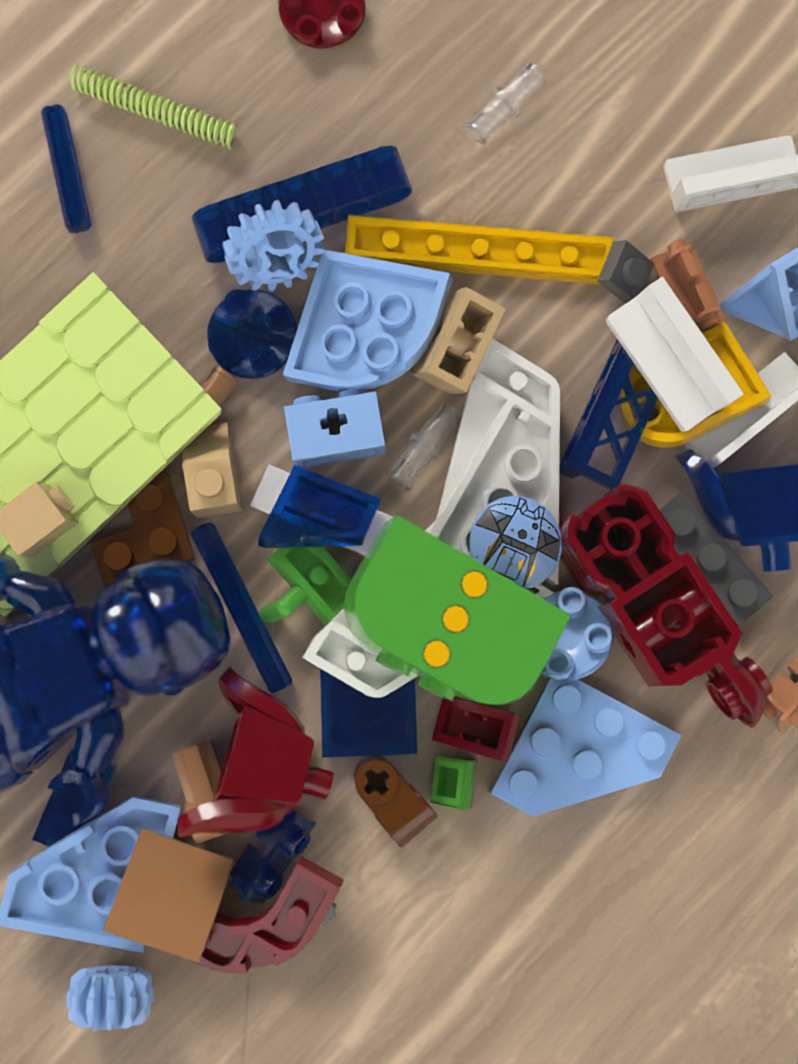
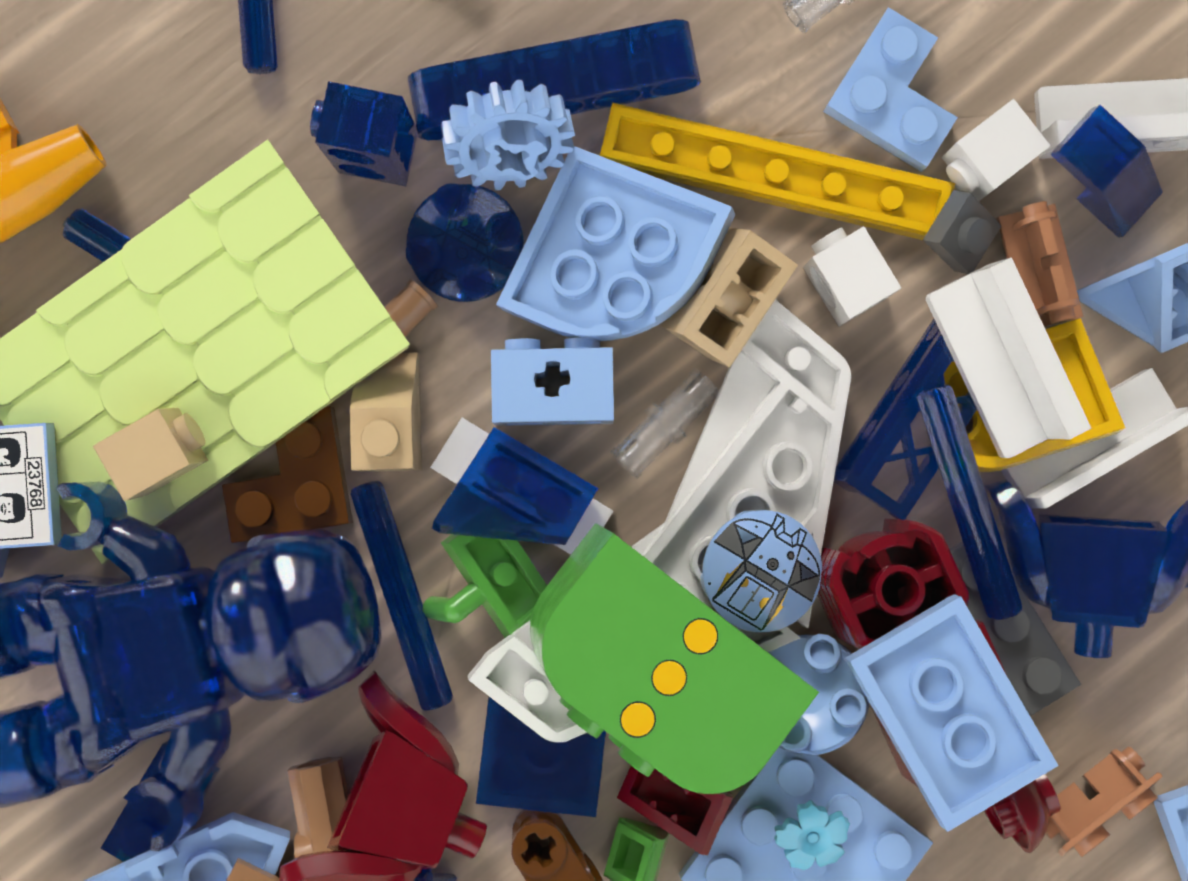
camera: 10 degrees right, 5 degrees up
(166, 260) = (365, 133): none -> clear blue brick
(547, 314) = (850, 274): none -> white brick
(549, 188) = (877, 96): none -> light blue plate
(587, 741) = (813, 837): none -> medium azure plant
(639, 208) = (994, 151): none -> white brick
(664, 467) = (969, 502): none -> clear blue axle
(674, 620) = (951, 712): none -> light blue plate
(729, 208) = (1112, 169): none -> clear blue slope

